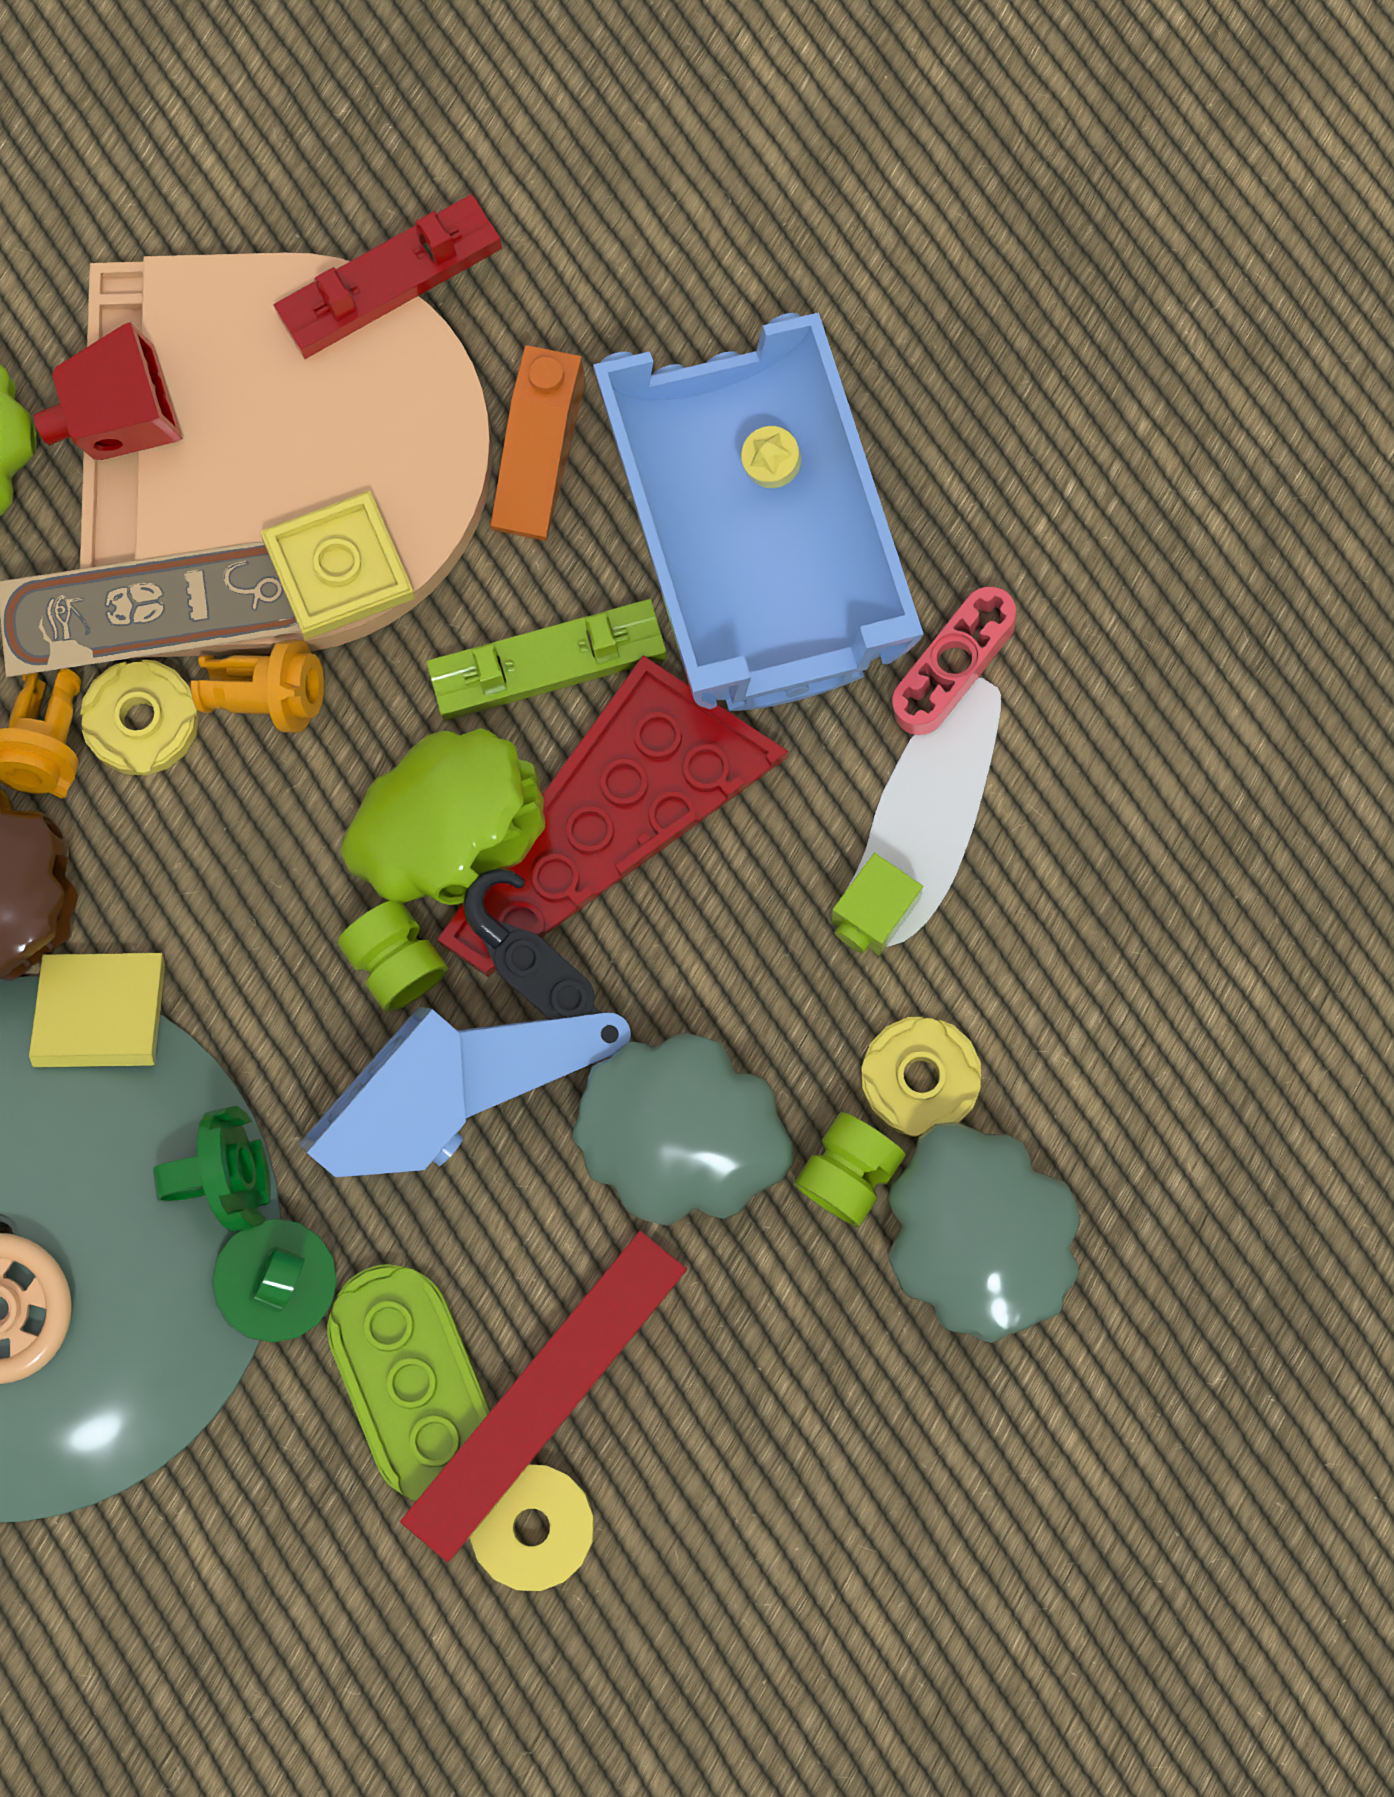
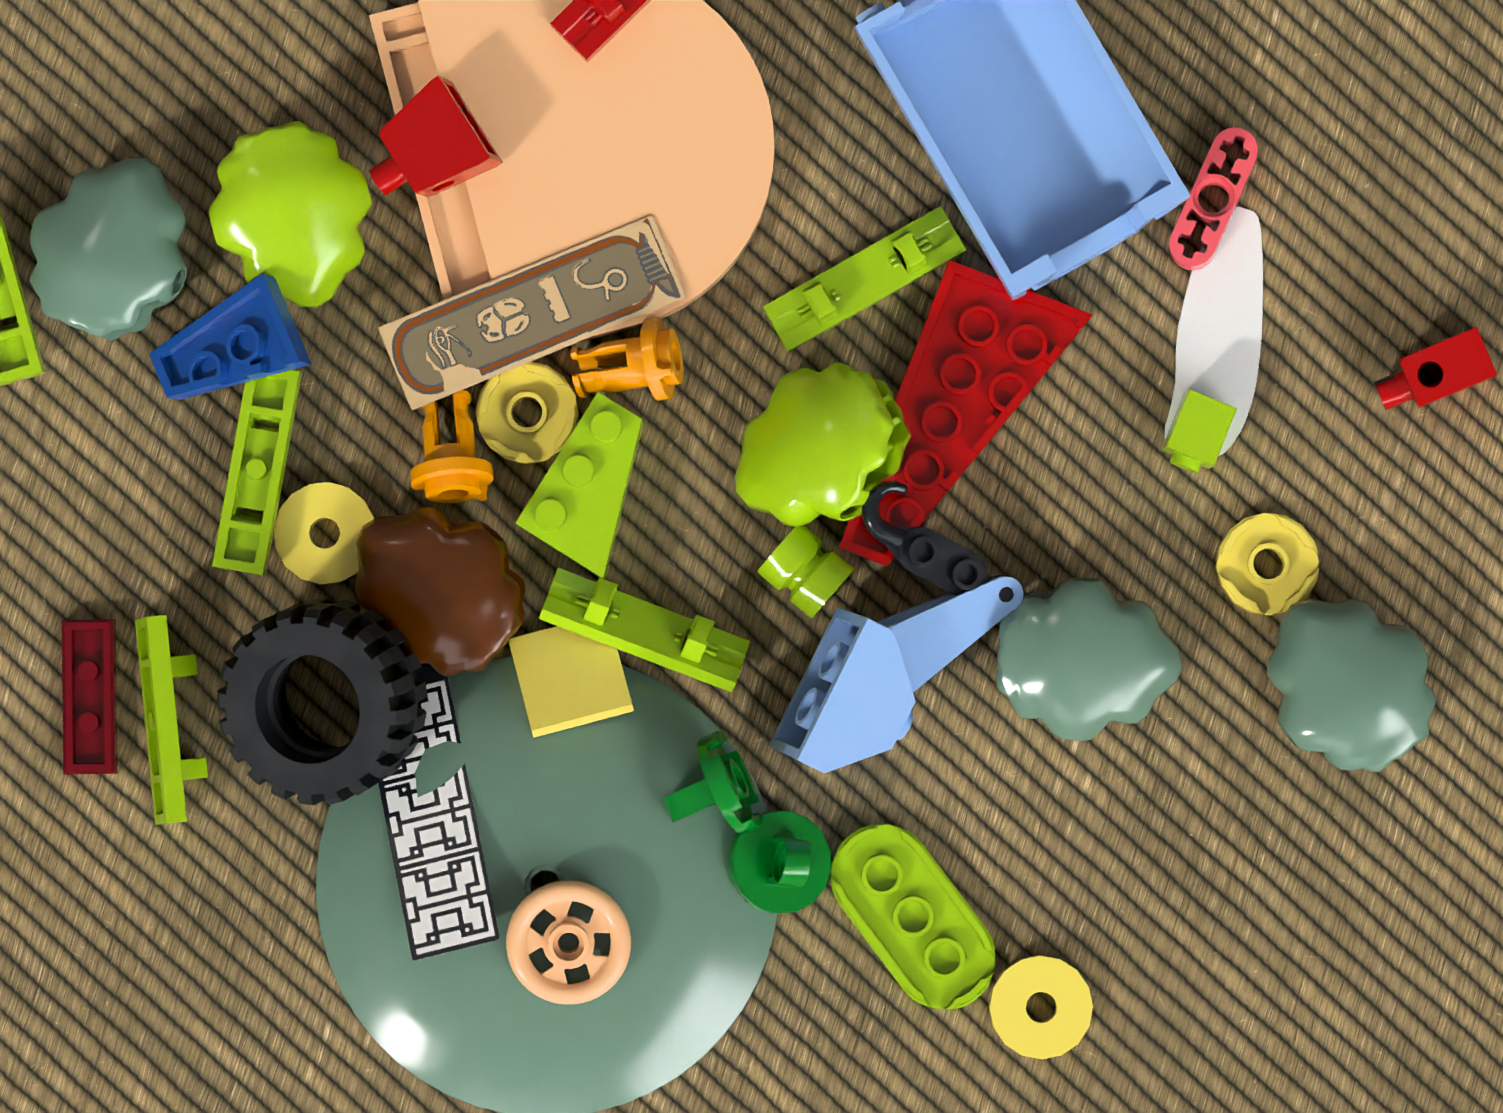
camera: 20 degrees left, 10 degrees up
(176, 805) = (586, 487): none -> lime wedge
(196, 979) = (645, 629): none -> lime hinge
(337, 565) = (670, 245): light yellow tile -> none
(537, 441) = (808, 90): orange slope -> none
(543, 1397) = (1026, 900): red tile -> none
(771, 457) = (1018, 60): light yellow tile -> none
(849, 1169) = (1229, 657): lime wheel -> none
(1192, 895) = (1462, 363): none -> red torso

